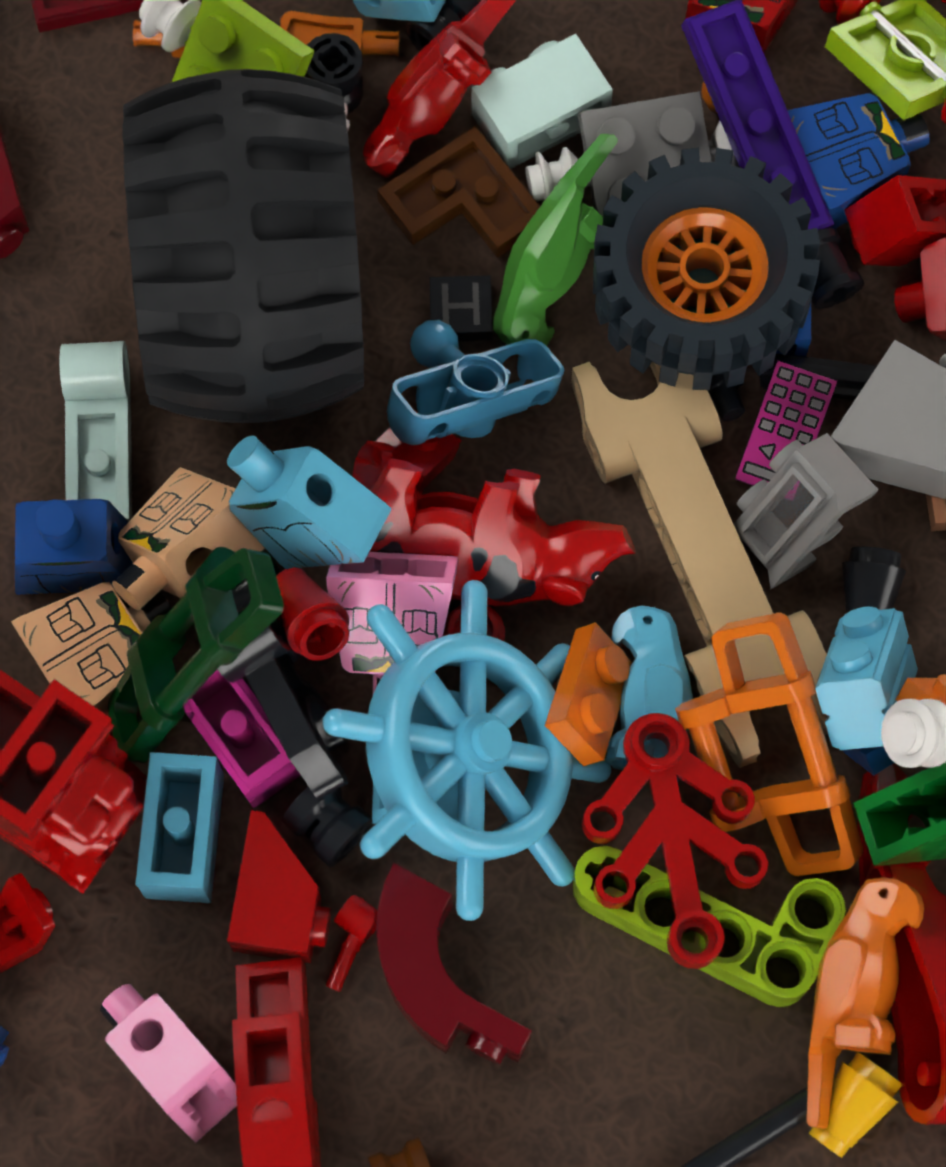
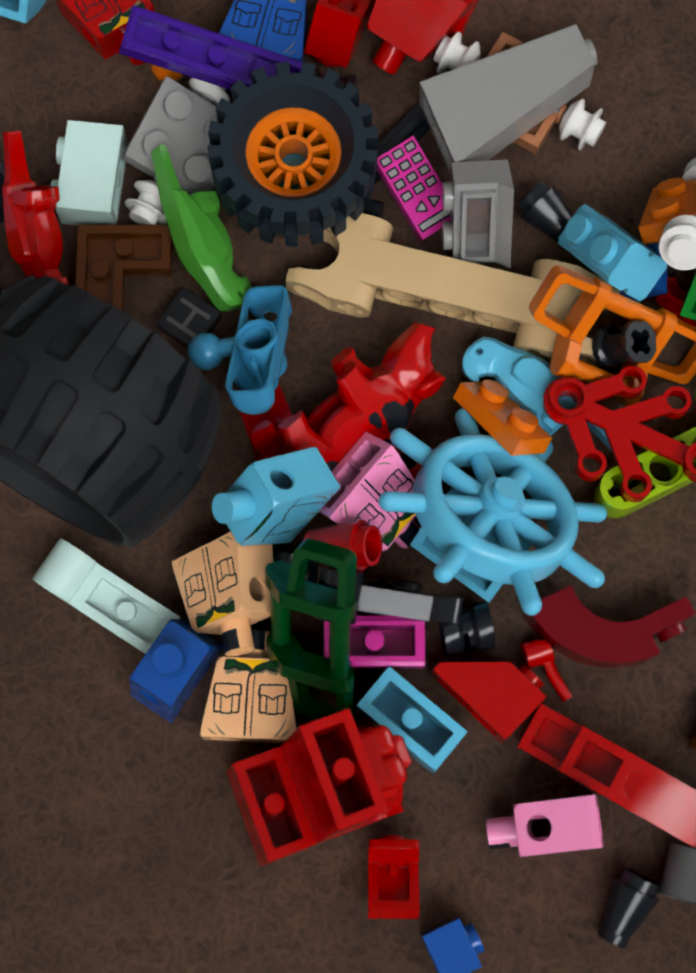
camera: 55 degrees left, 5 degrees up
(758, 752) = (631, 343): none -> black bush

